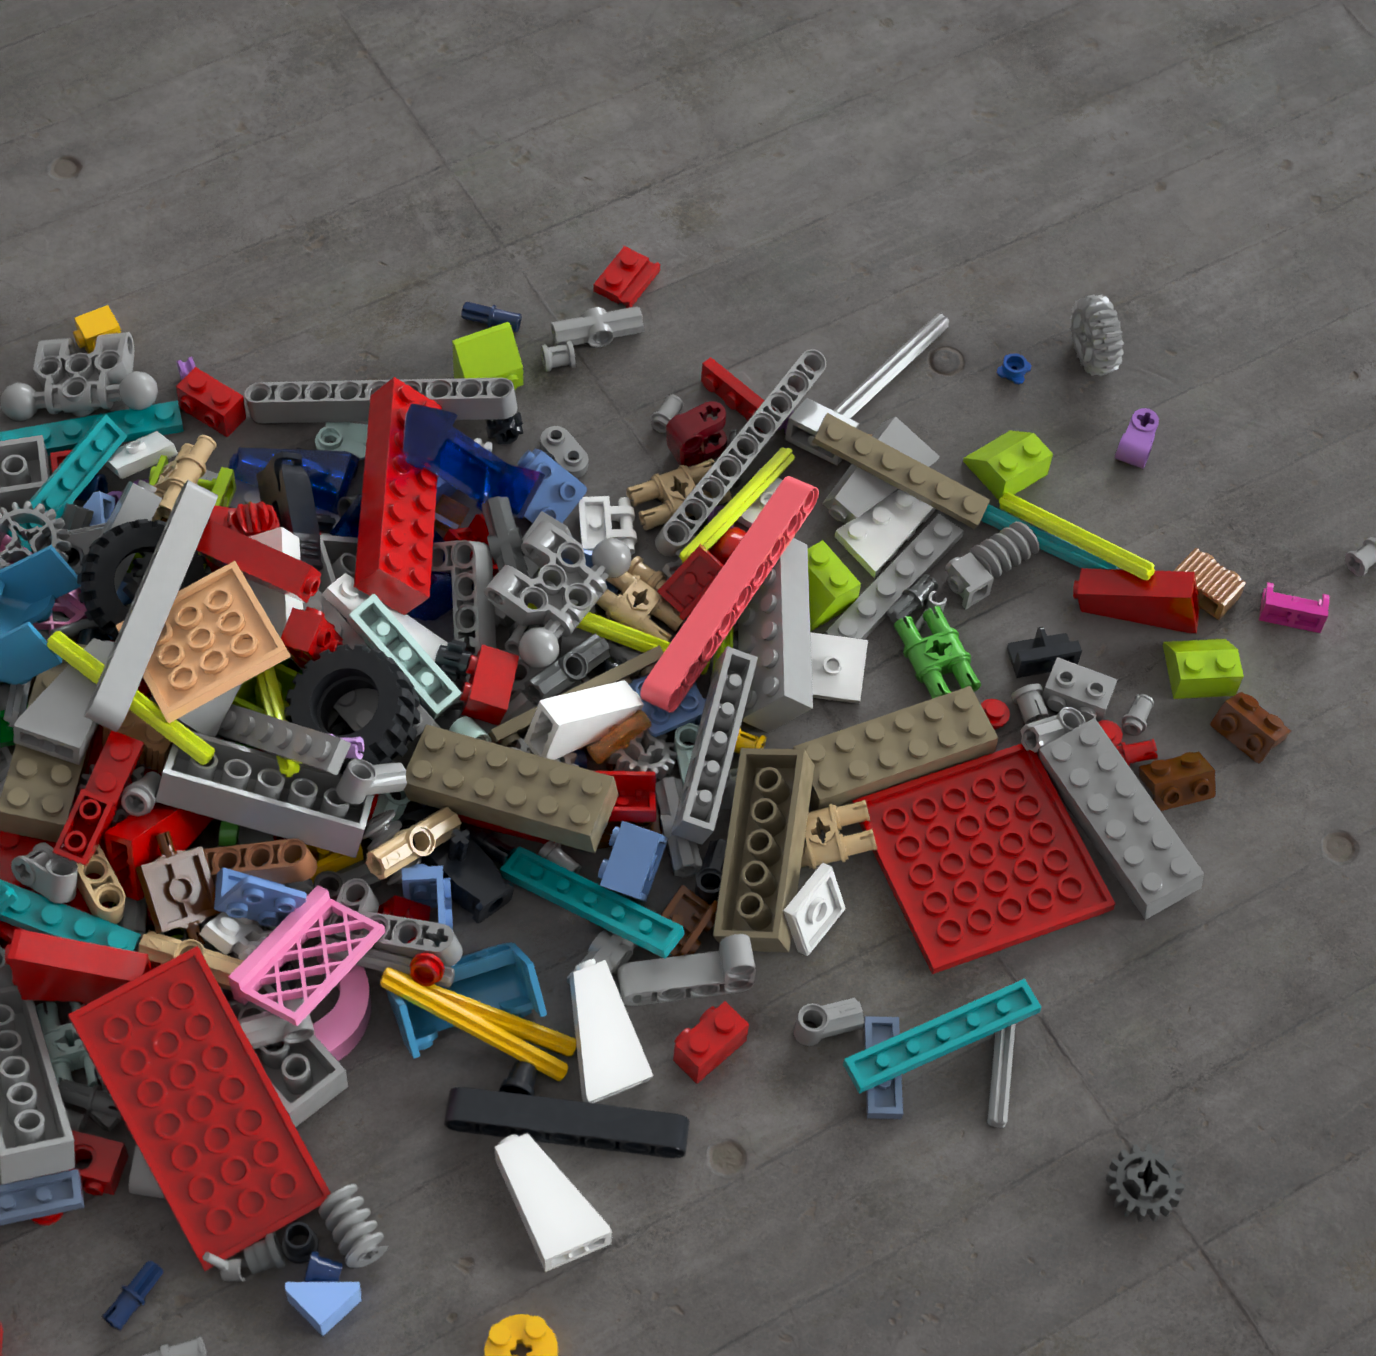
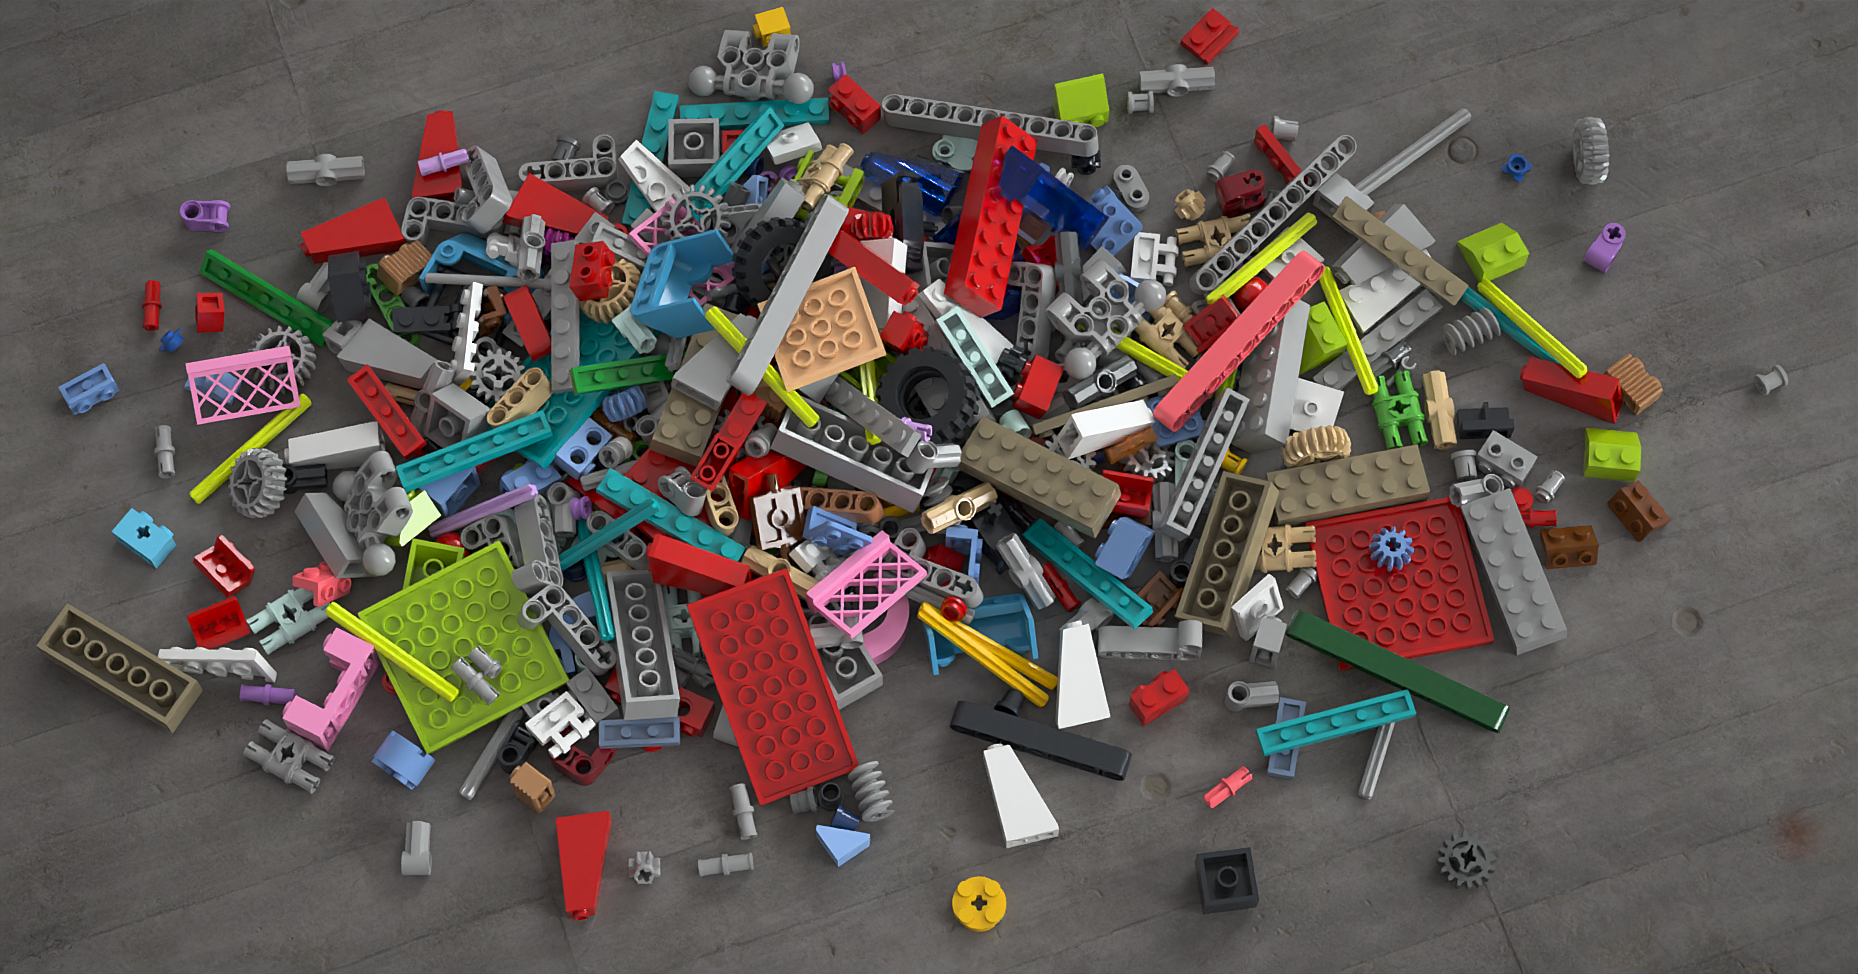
camera: 15 degrees right, 10 degrees up
(132, 1295) = (706, 814): dark blue axle -> none
(183, 1283) = (743, 811): none -> light grey pin
(229, 1268) = (777, 806): light grey hand -> none
(490, 315) = (1092, 57): dark blue axle -> none
(512, 910) = (1025, 571): none -> light grey piece
(557, 927) = (1060, 588): none -> red pin
(639, 458) = (1190, 204): none -> tan gear
(735, 362) = (1284, 129): none -> light grey bush
(820, 1142) = (1227, 787): none -> coral axle
(836, 949) = (1268, 642): none -> light grey brick
(844, 1262) = (1226, 880): none -> black brick
(847, 705) = (1316, 446): none -> tan gear
(866, 866) = (1301, 582): none -> light grey pin
(869, 588) = (1347, 329): none -> neon yellow axle
(966, 812) = (1382, 551): none -> medium blue gear
(969, 579) = (1437, 350): light grey brick -> none
(986, 646) = (1439, 410): none -> tan piece
(997, 712) = (1434, 467): red plate -> none
(1005, 959) = (1397, 671): none -> dark green beam
(1293, 610) = (1699, 416): dark pink hinge -> none

